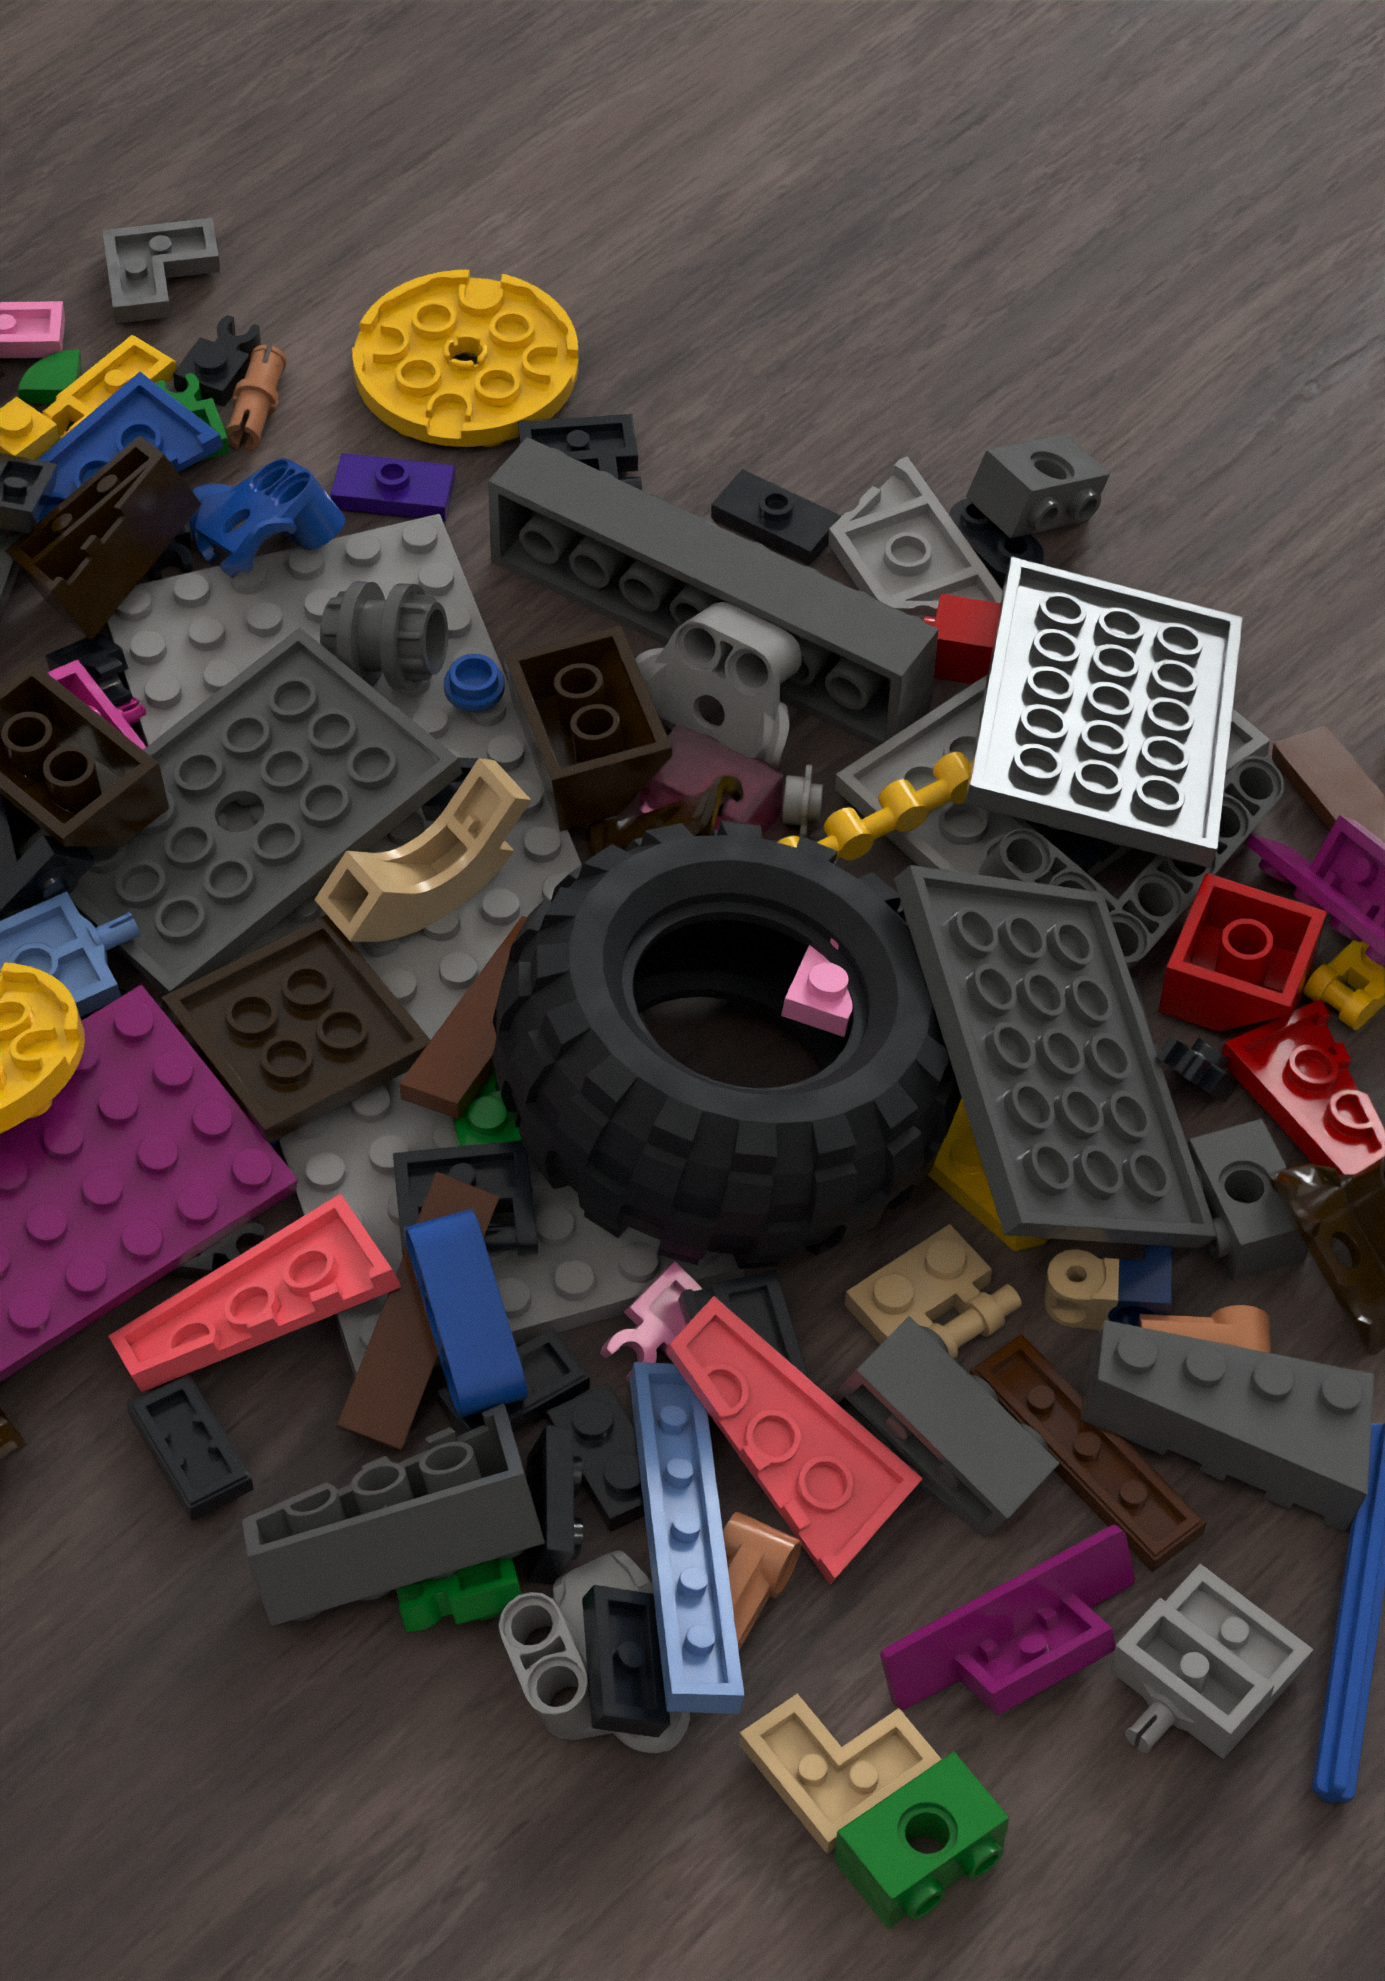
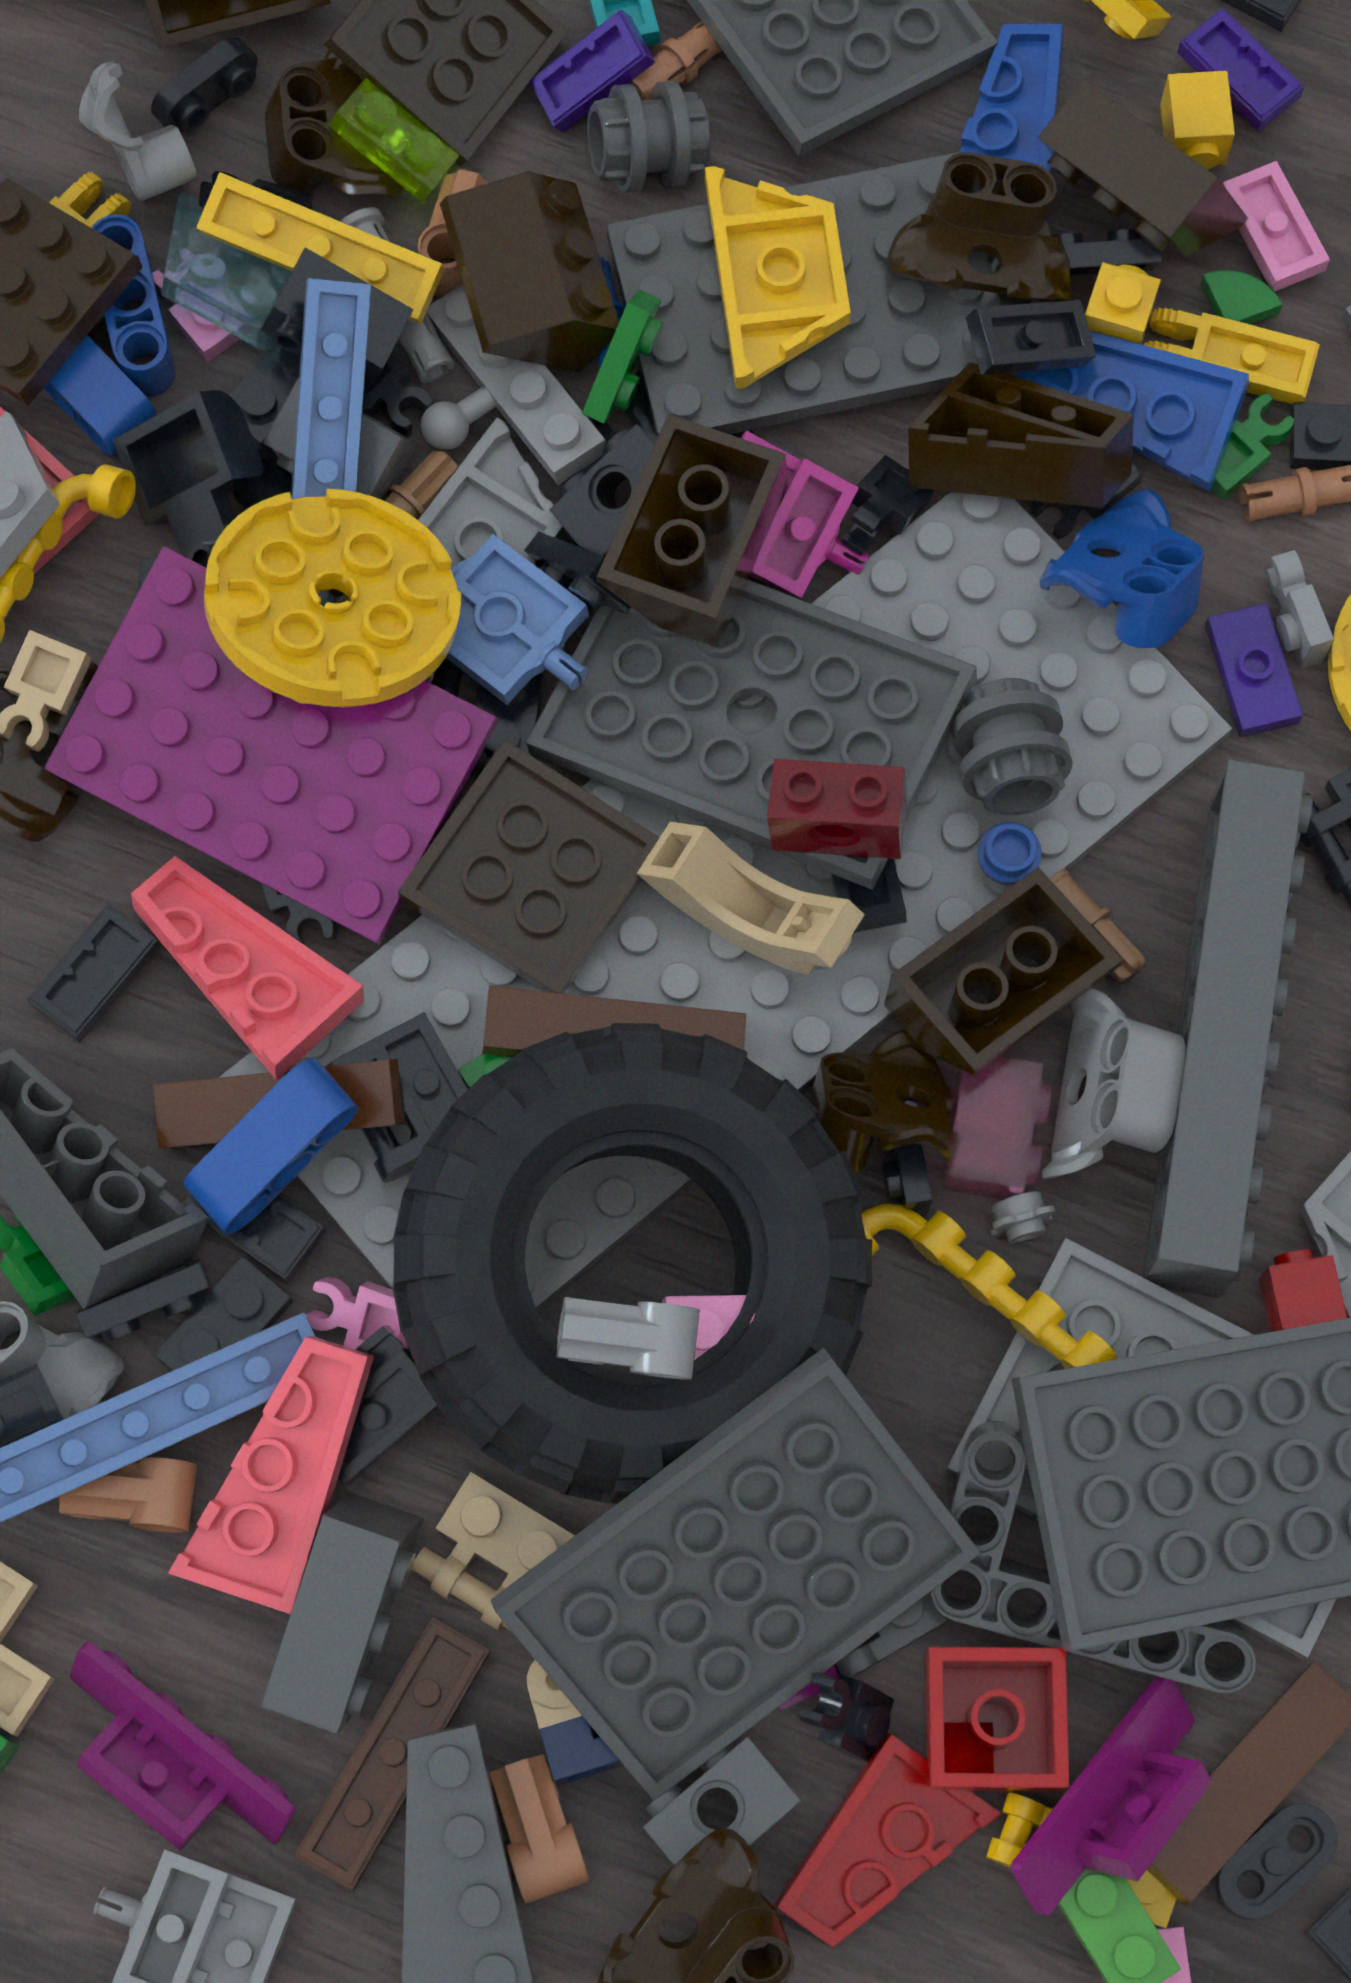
camera: 70 degrees right, 20 degrees up
(365, 430) = (1301, 618): none -> light grey plate
(386, 745) = (837, 808): none -> dark red brick
(828, 991) = (645, 1337): none -> light grey piece

